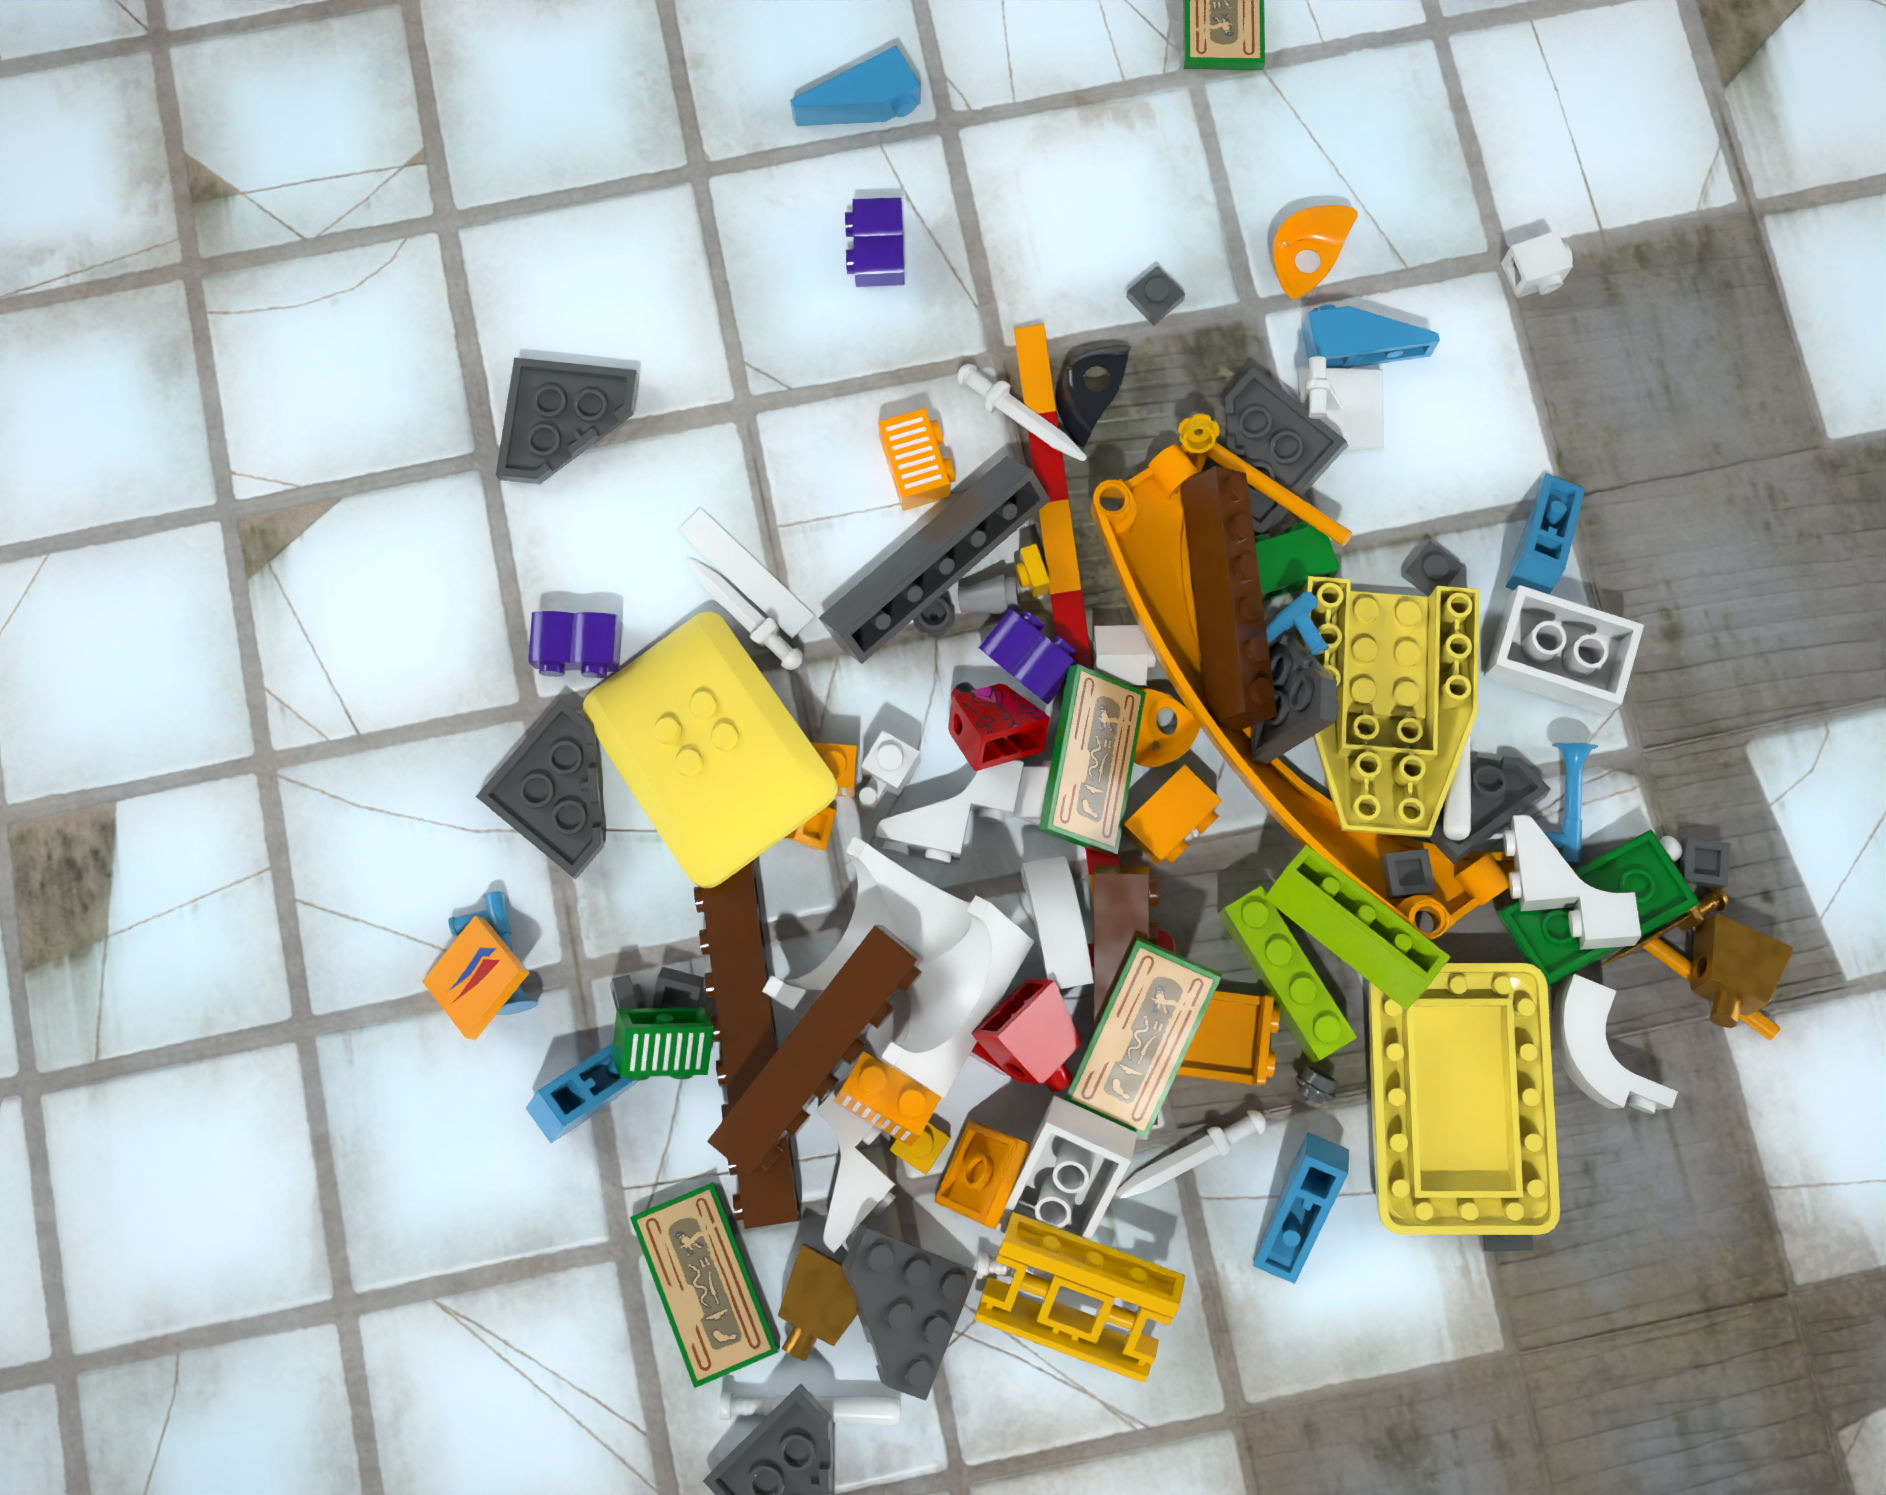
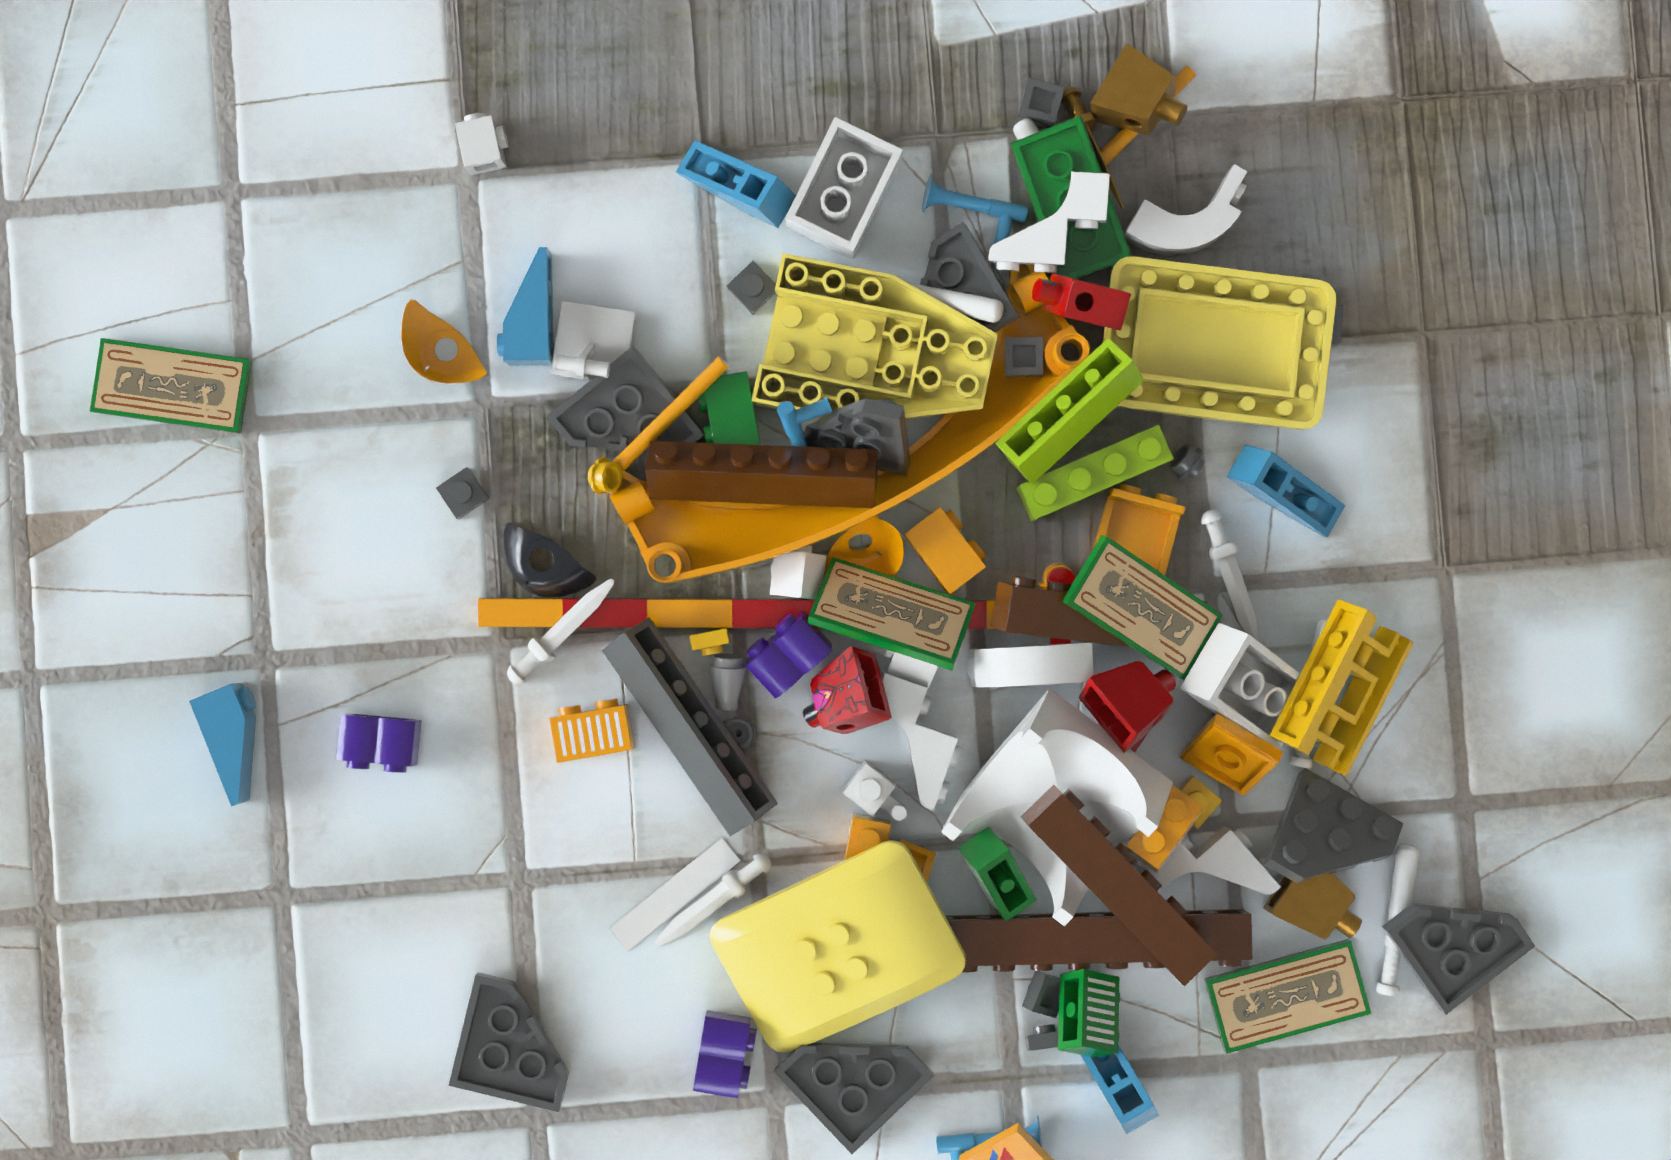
camera: 85 degrees left, 10 degrees up
(811, 915) = (997, 873): none -> green brick
(1486, 941) = (1082, 300): none -> red torso

